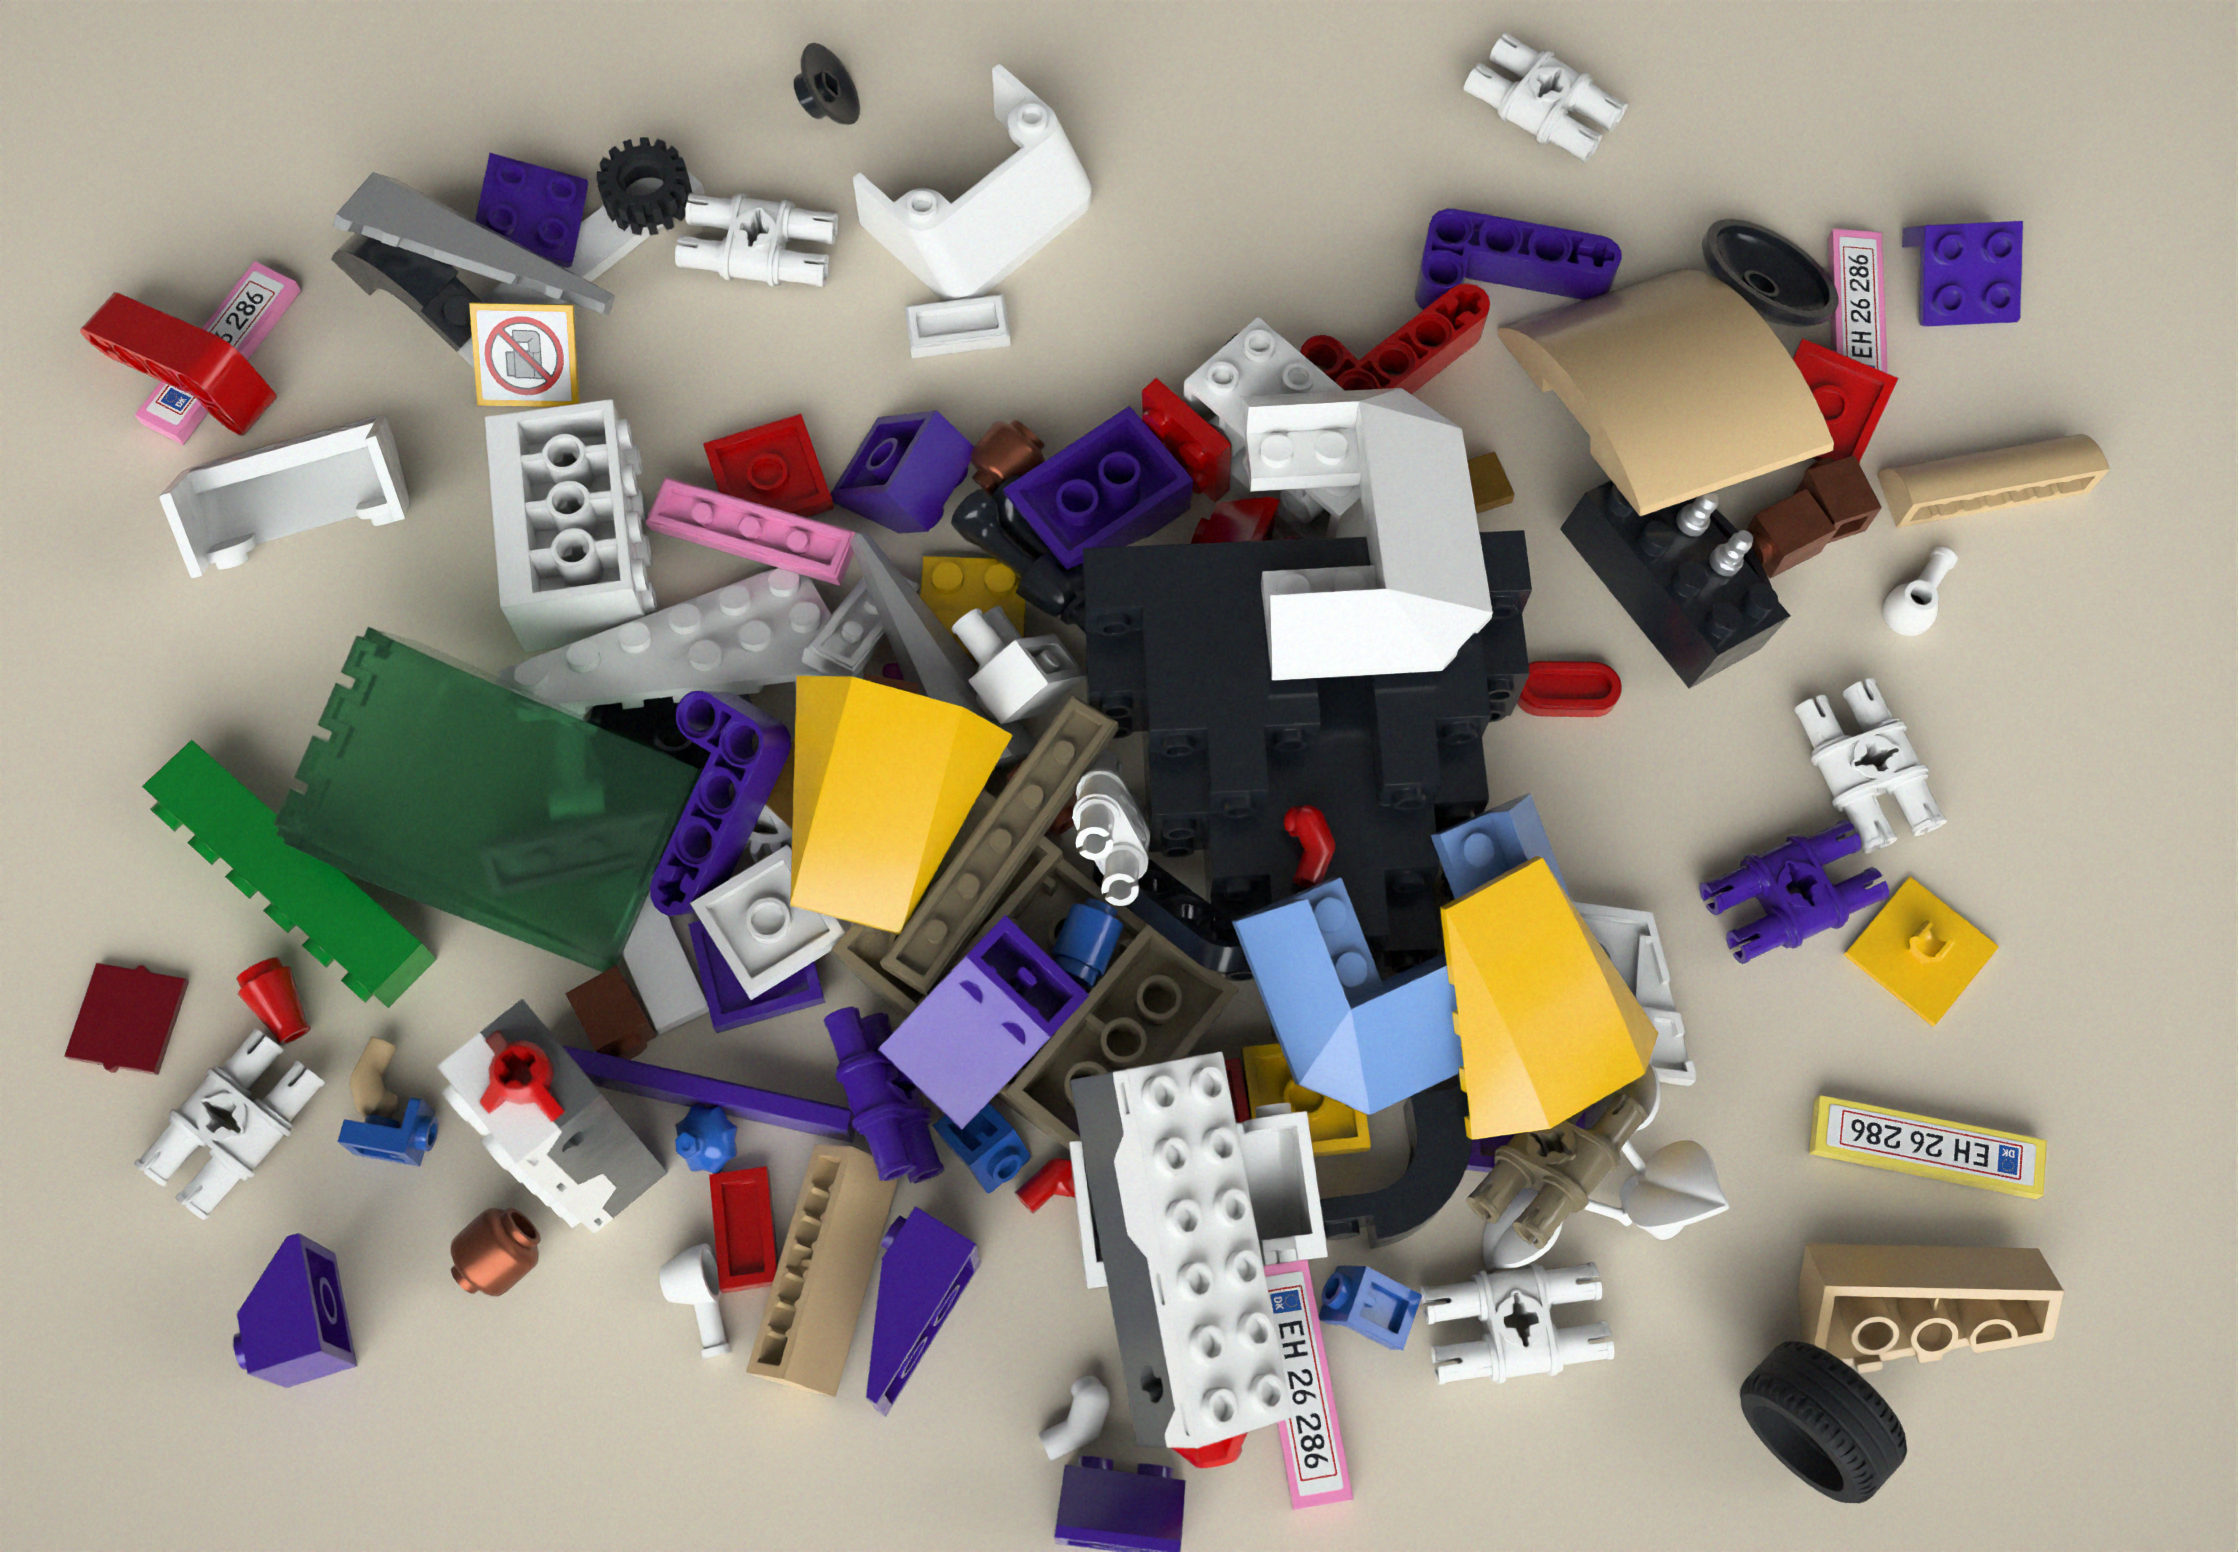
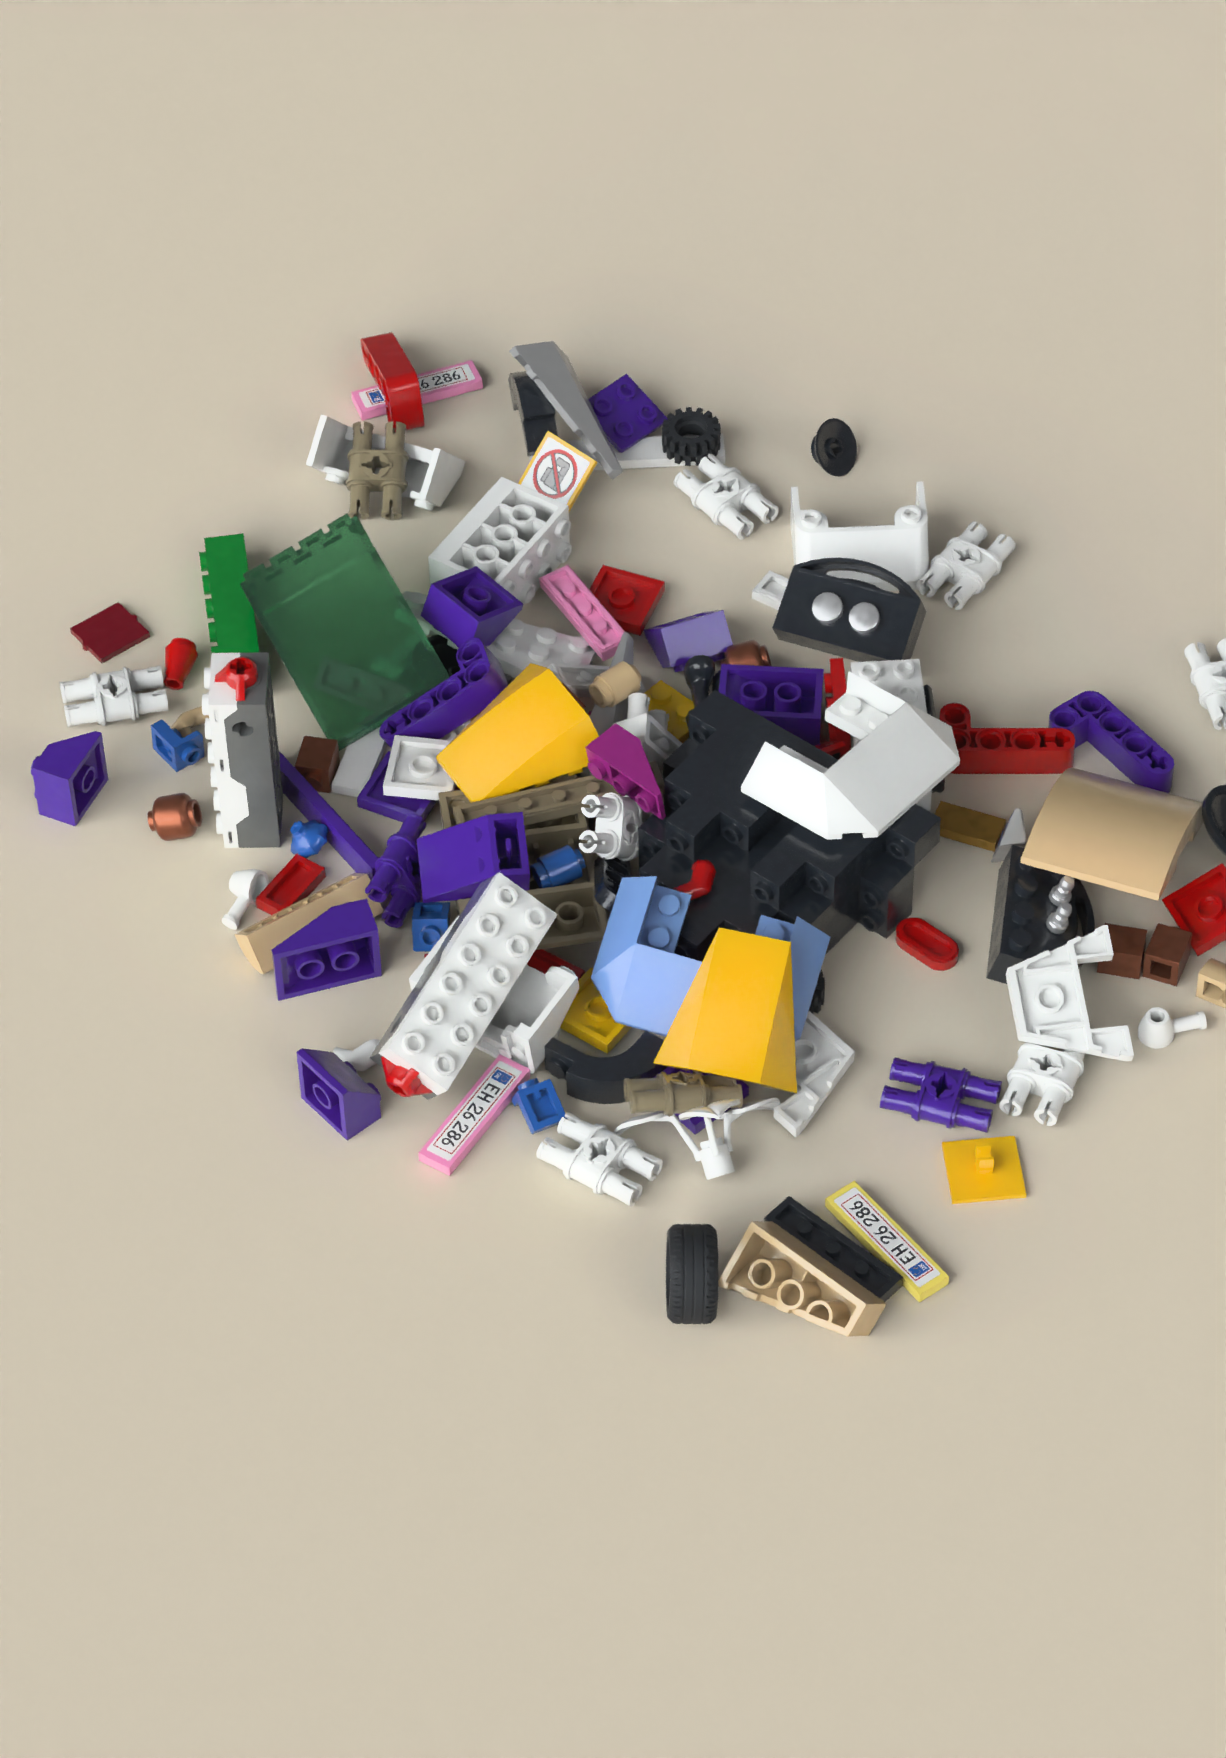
camera: 45 degrees right, 20 degrees down
(293, 484) = (391, 475): none -> dark tan pin
(630, 645) = (470, 607): none -> dark purple slope
(925, 623) = (615, 684): none -> tan brick
(1060, 737) = (622, 762): none -> magenta slope
(1084, 302) = (849, 614): none -> black piece
(1123, 141) = (965, 565): none -> white pin
(1549, 478) = (1013, 834): none -> light grey slope
(1817, 668) = (1051, 1001): none -> white wing
(1895, 1217) = (836, 1248): none -> black plate

